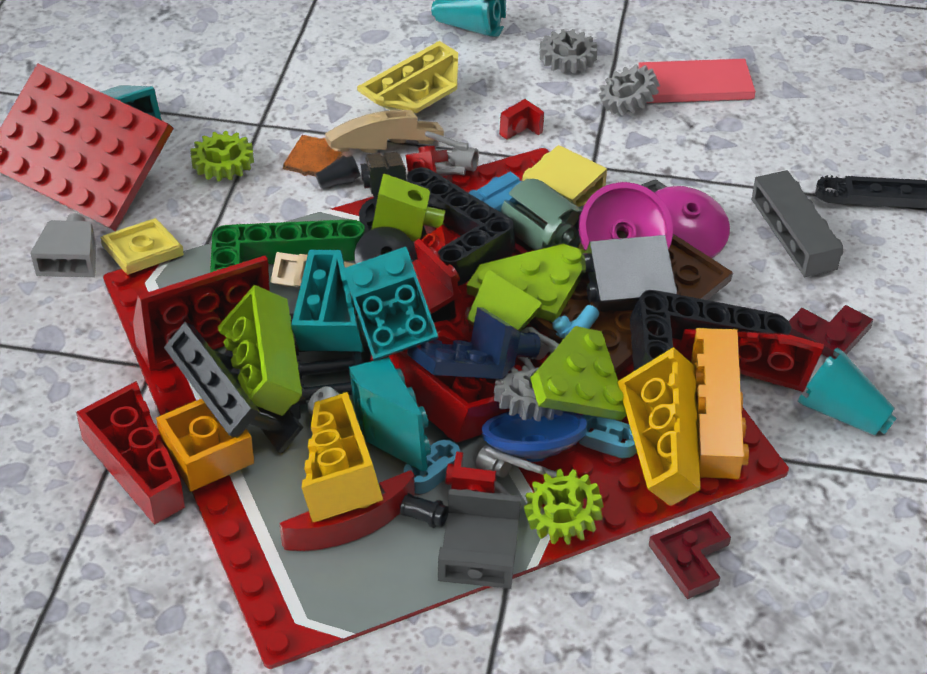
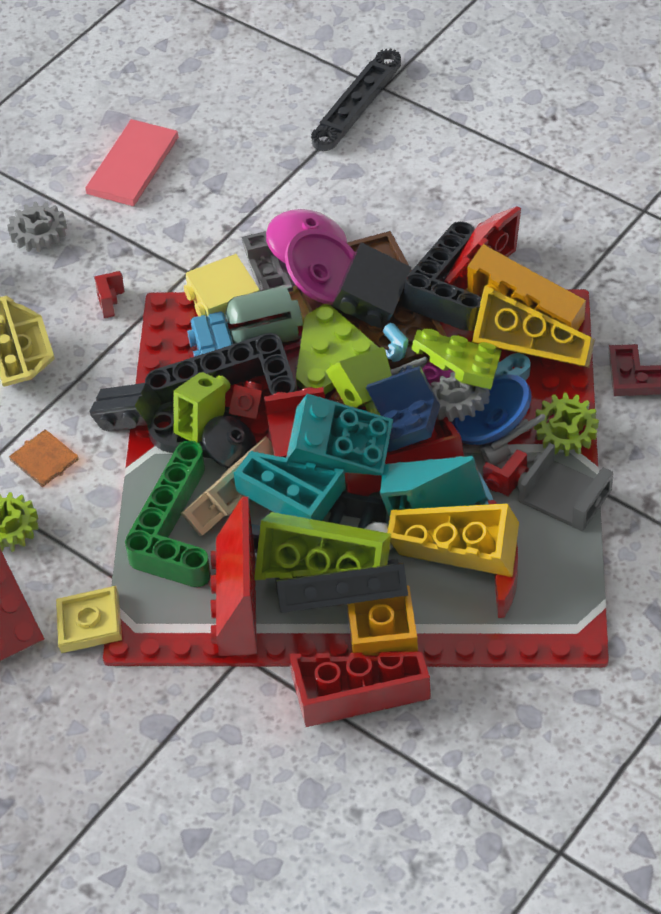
camera: 60 degrees left, 5 degrees up
(66, 249) = (57, 675): light grey torso -> none
(339, 172) = (87, 440): black cone -> none
(373, 130) = (57, 393): tan slope -> none
(426, 158) = (121, 373): red bracket -> none
(428, 511) = (524, 507): black pin -> none
(462, 158) = (136, 347): light grey plant -> none
(629, 89) = (134, 207): light grey gear -> none
(797, 223) = (354, 173): dark grey brick -> none
(842, 331) = (473, 207): dark red plate -> none
(848, 396) = (547, 224): teal cone -> none

